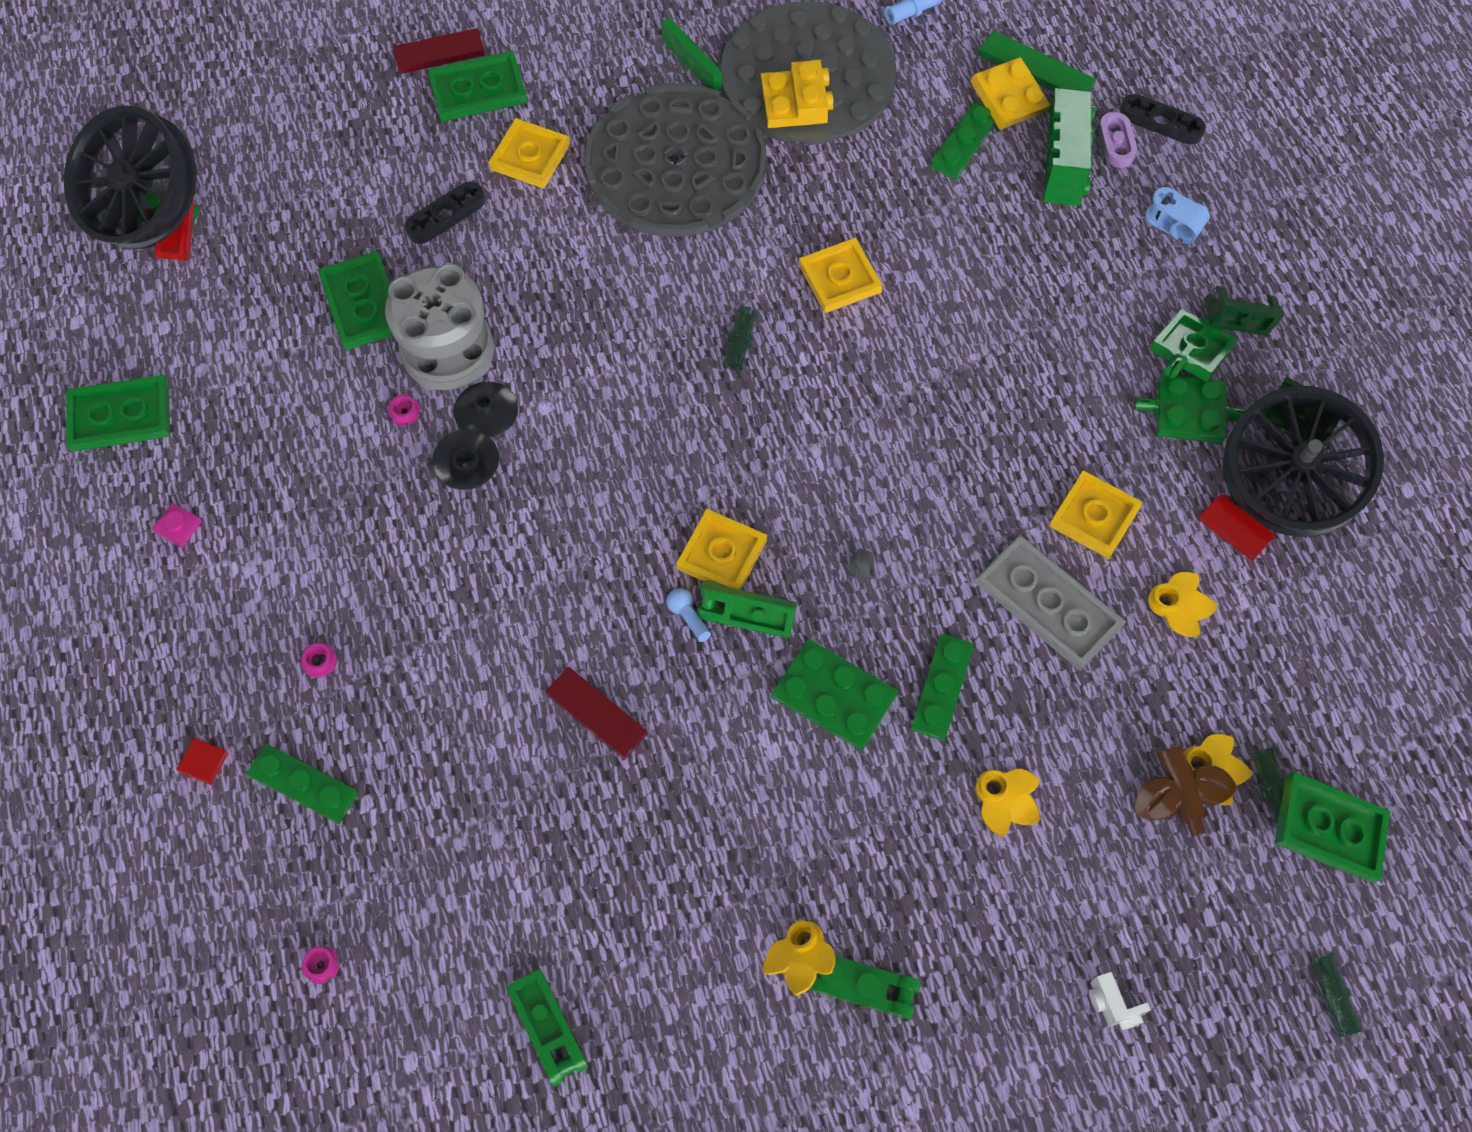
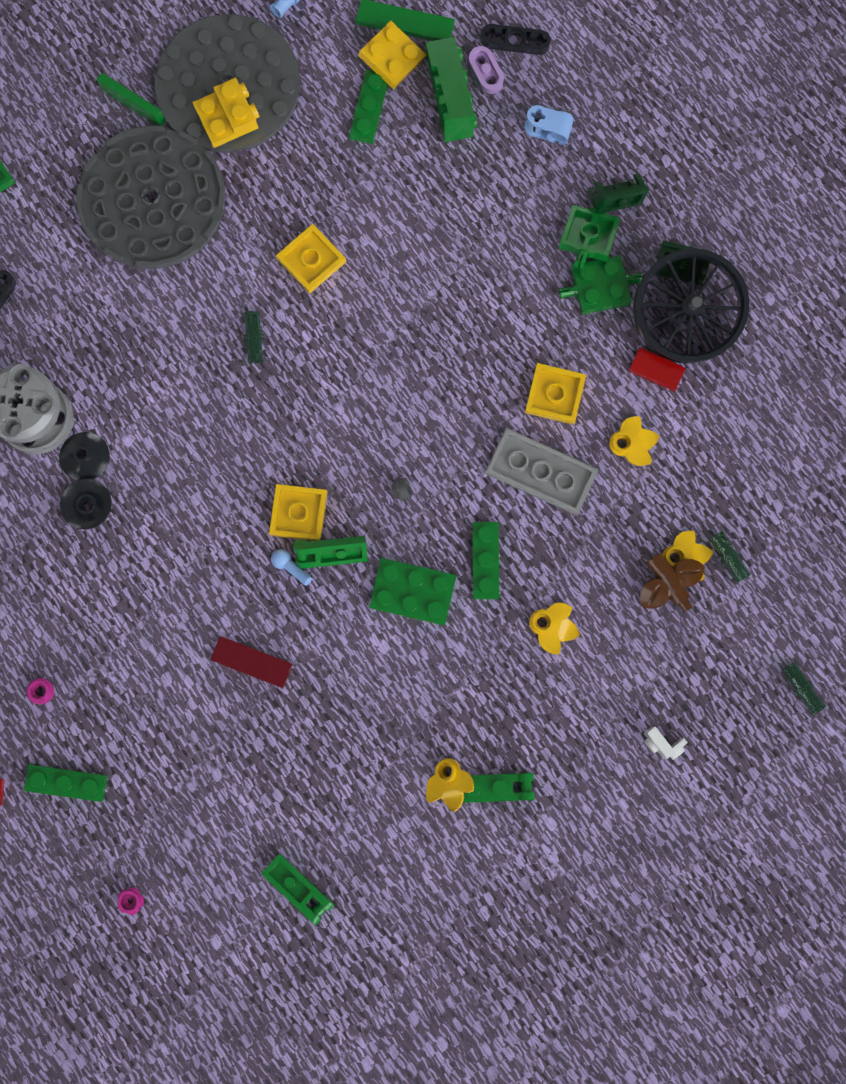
camera: 15 degrees left, 15 degrees up
(401, 403) = (19, 474): dark pink plate -> none
(529, 153) = (35, 229): yellow plate -> none
(1332, 827) = (775, 575): green plate -> none

